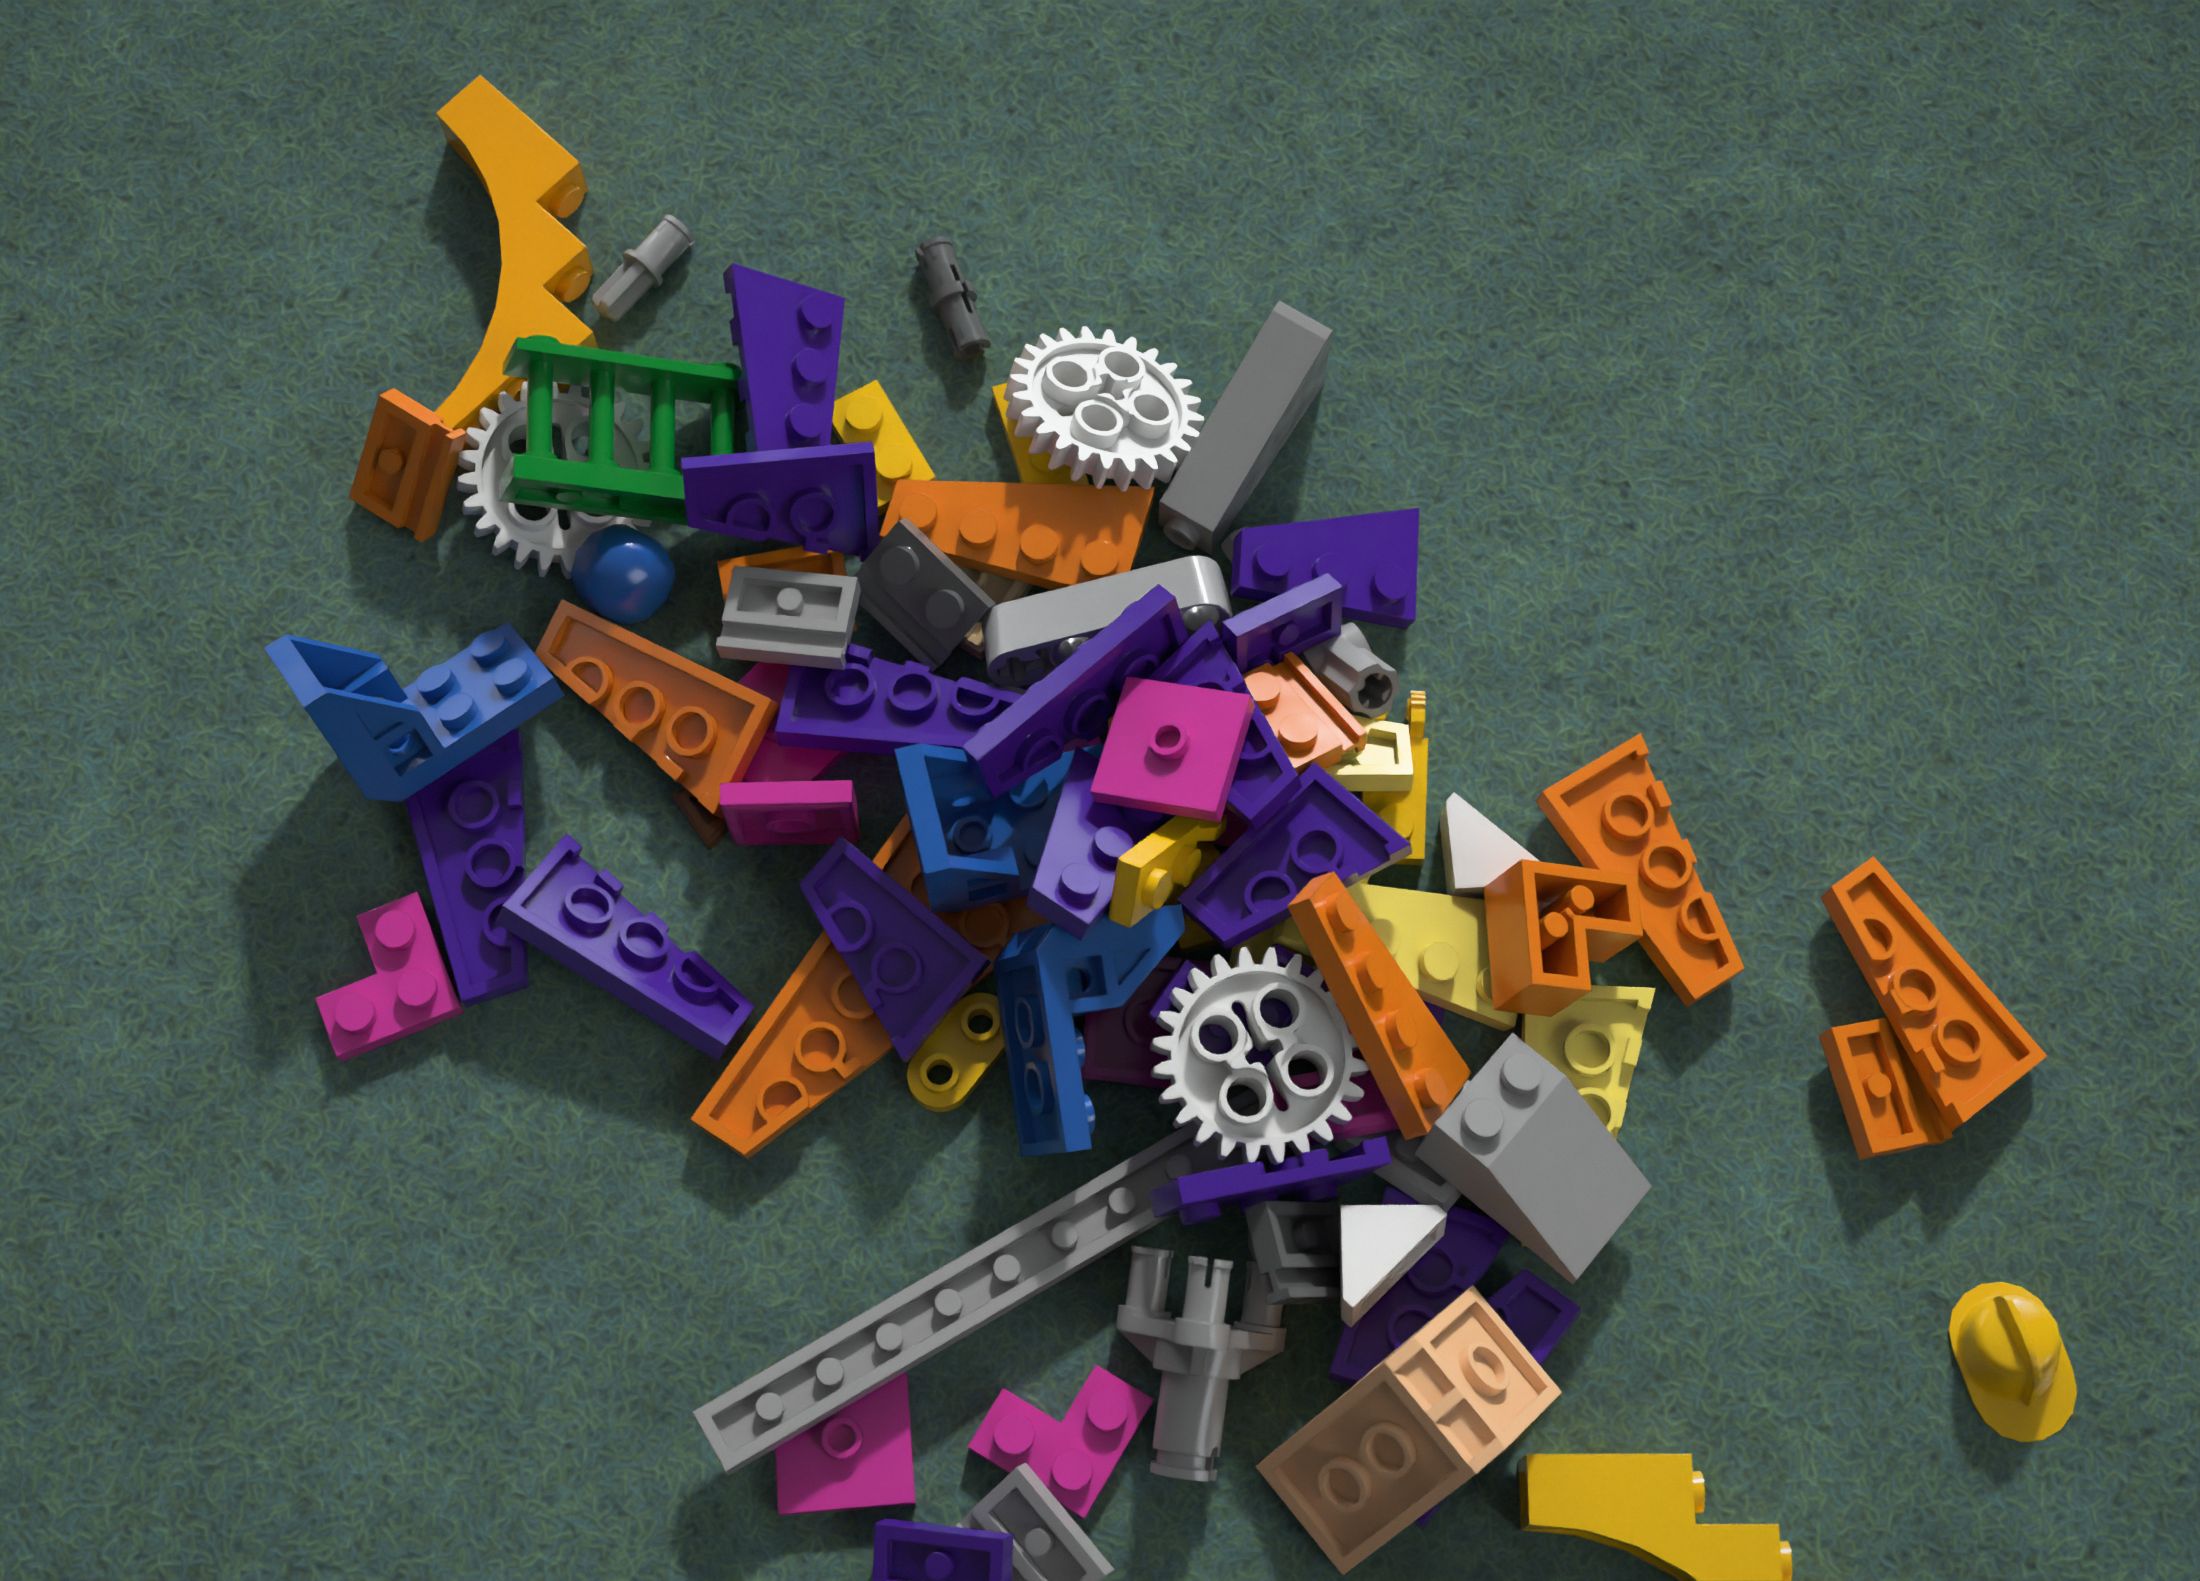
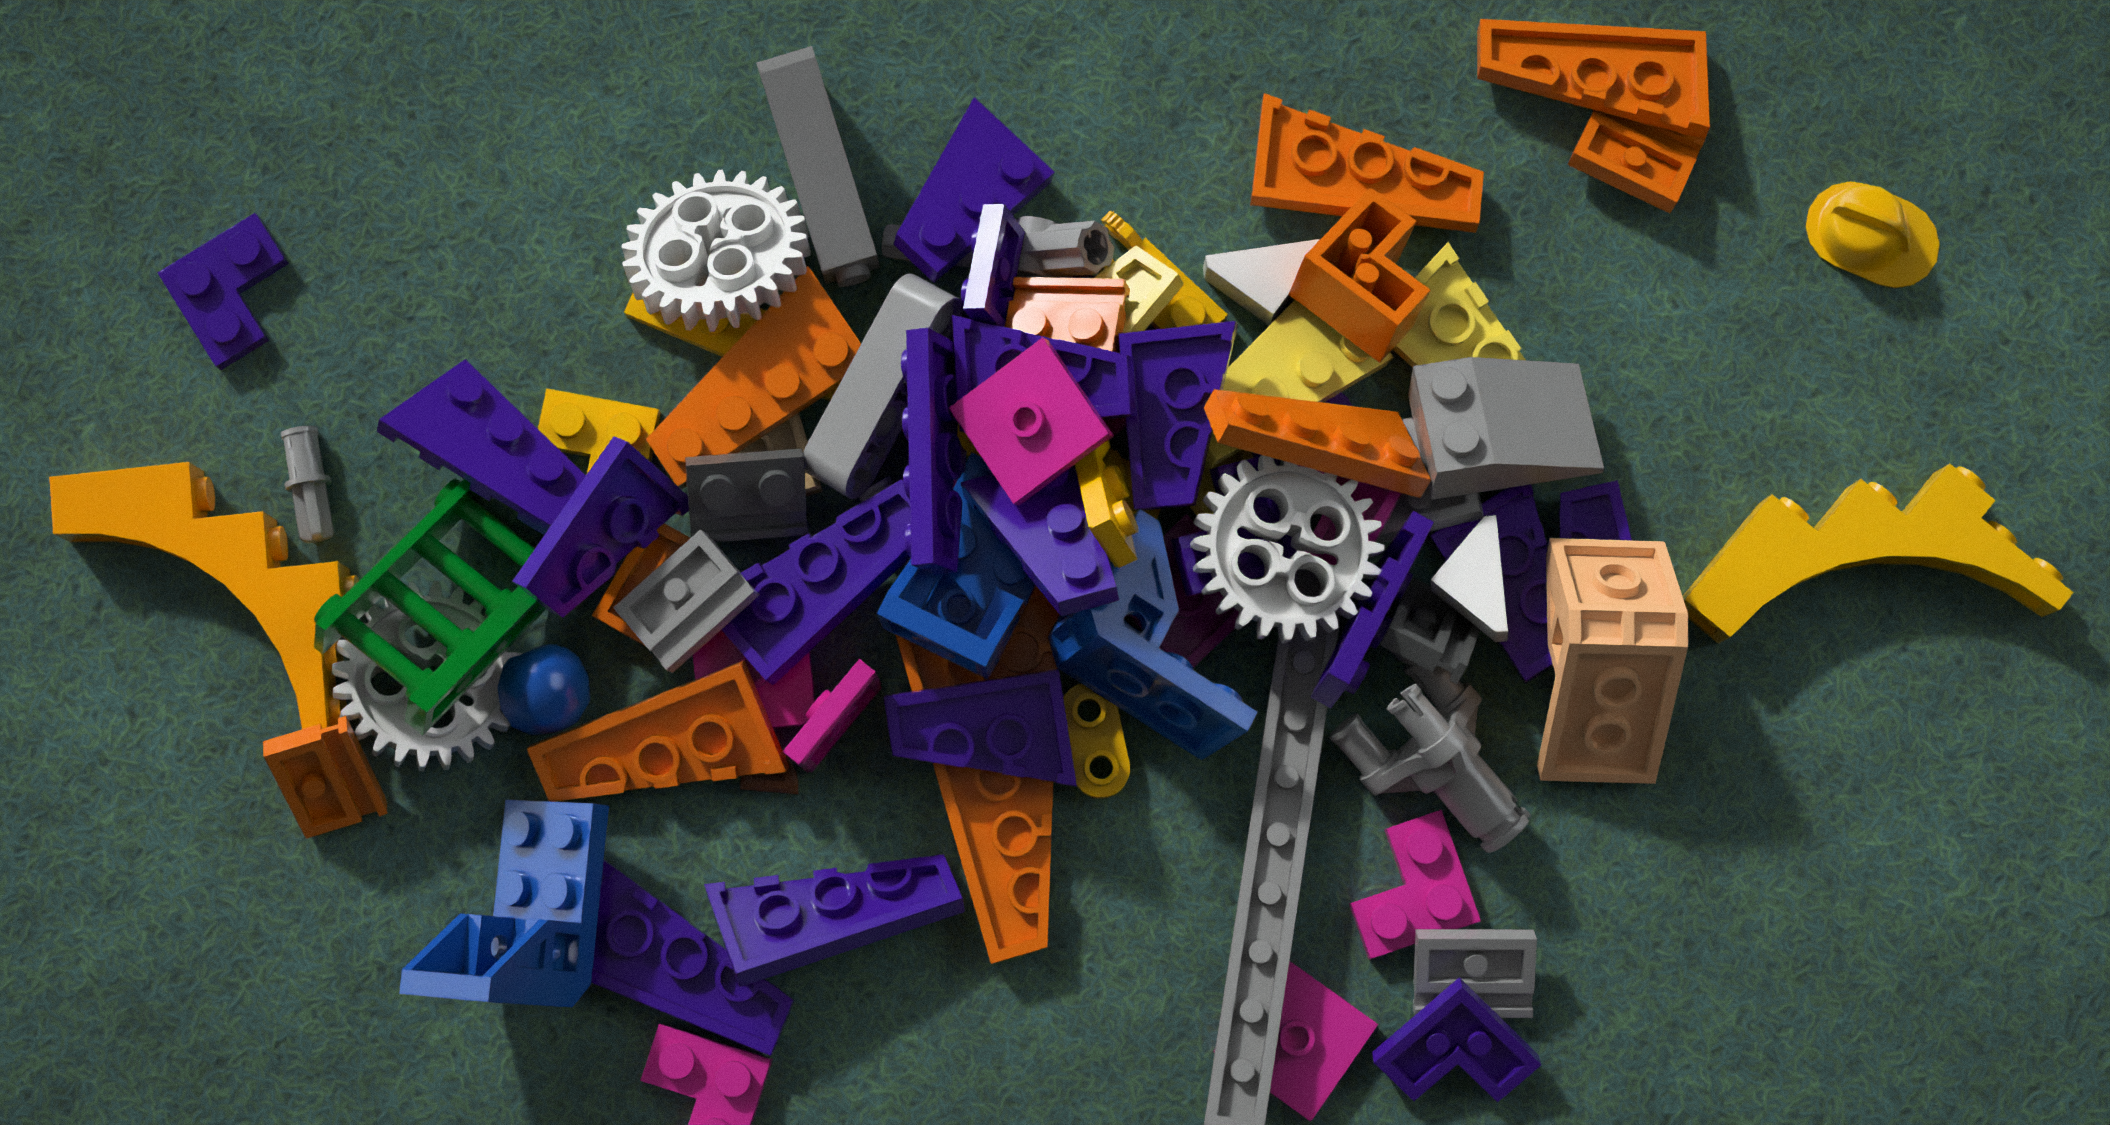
camera: 50 degrees left, 10 degrees up
(747, 73) = (210, 286): none -> dark purple plate
(952, 298) = (528, 282): dark grey pin -> none

